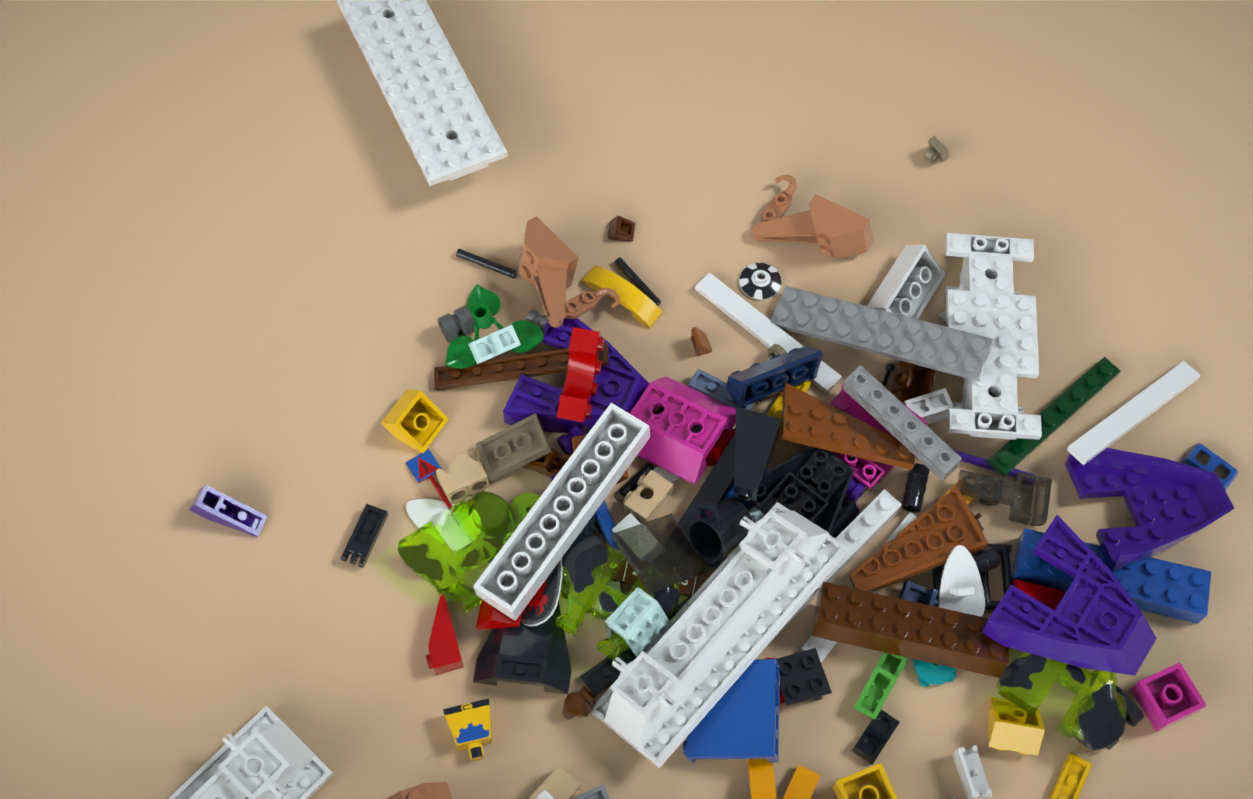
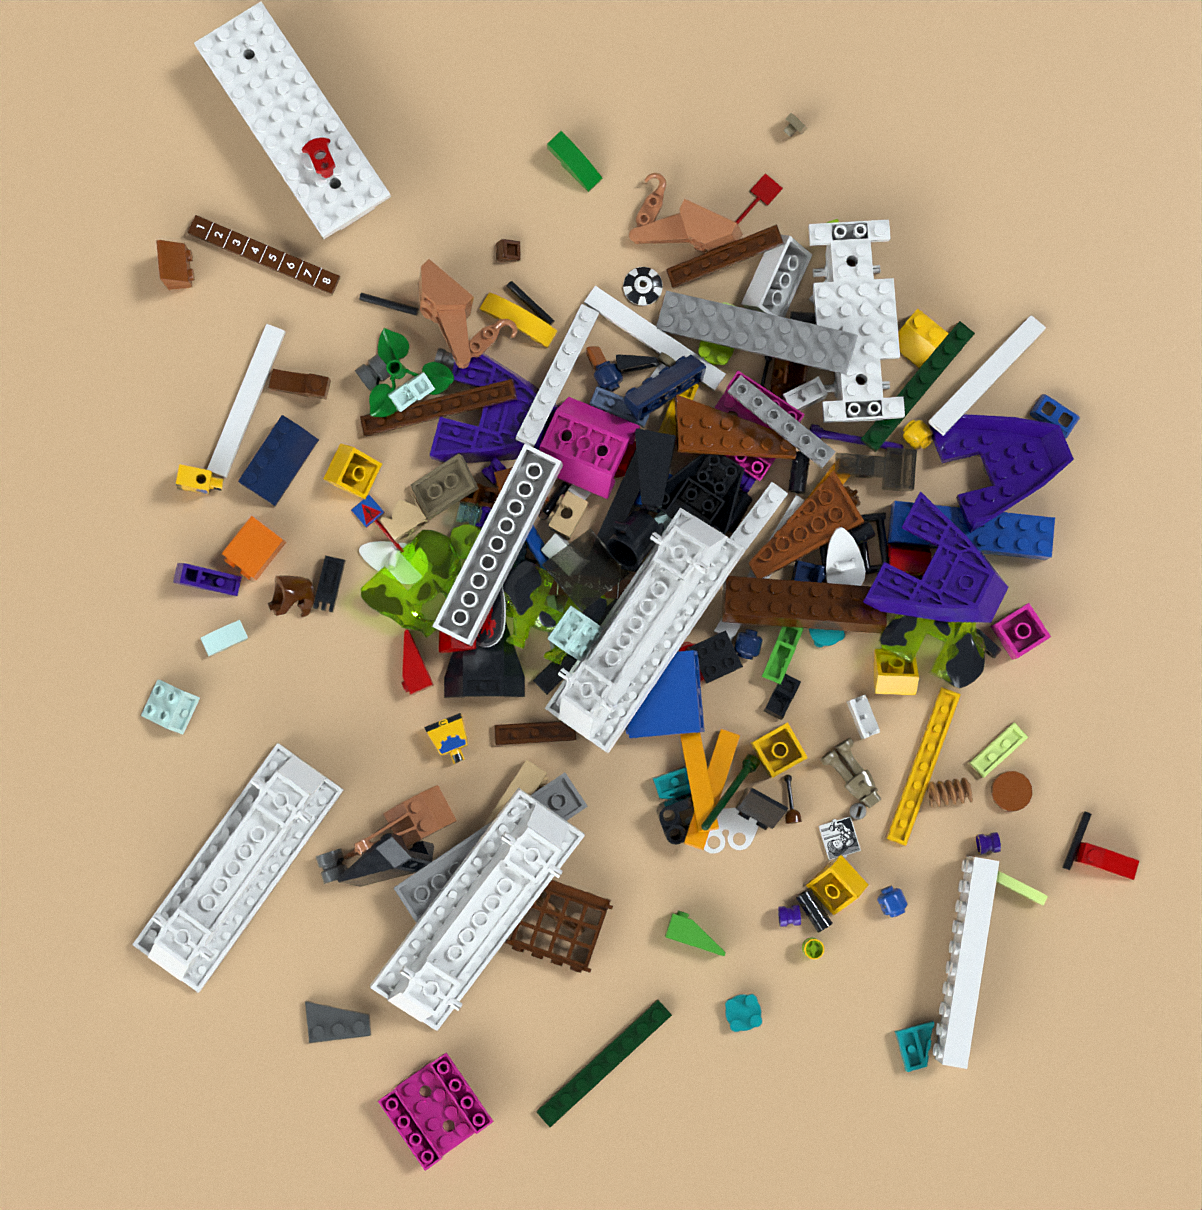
camera: 10 degrees left, 20 degrees up
(152, 647) = (170, 707): none -> light aqua bracket
(230, 578) = (224, 637): none -> light aqua slope
(240, 404) = (188, 479): none -> yellow torso
(269, 195) = (174, 264): none -> dark orange slope
(287, 486) = (253, 548): none -> orange brick
(313, 338) = (246, 400): none -> white tile
(317, 531) = (290, 590): none -> reddish brown piece
(335, 399) = (278, 460): none -> dark blue slope
(365, 201) = (264, 254): none -> reddish brown tile
(376, 327) = (300, 383): none -> reddish brown slope
(443, 113) = (322, 166): none -> red piece
(535, 481) = (468, 514): none -> clear light blue wheel
(573, 738) = (533, 733): none -> reddish brown tile
(578, 704) = (535, 704): reddish brown rock -> none
(581, 375) = (493, 420): red brick -> none
(656, 350) = (557, 376): none -> white plate
(702, 154) = (574, 161): none -> green slope
(712, 361) = (608, 376): none -> dark blue head
(744, 351) = (632, 363): none -> black slope
(834, 354) = (715, 353): none -> lime piece
(840, 668) = (748, 644): none -> dark blue head
(852, 259) = (725, 256): none -> reddish brown tile
(899, 207) = (765, 190): none -> red piece
(1053, 464) = (917, 434): none -> yellow head
(1060, 366) = (920, 338): none -> yellow slope

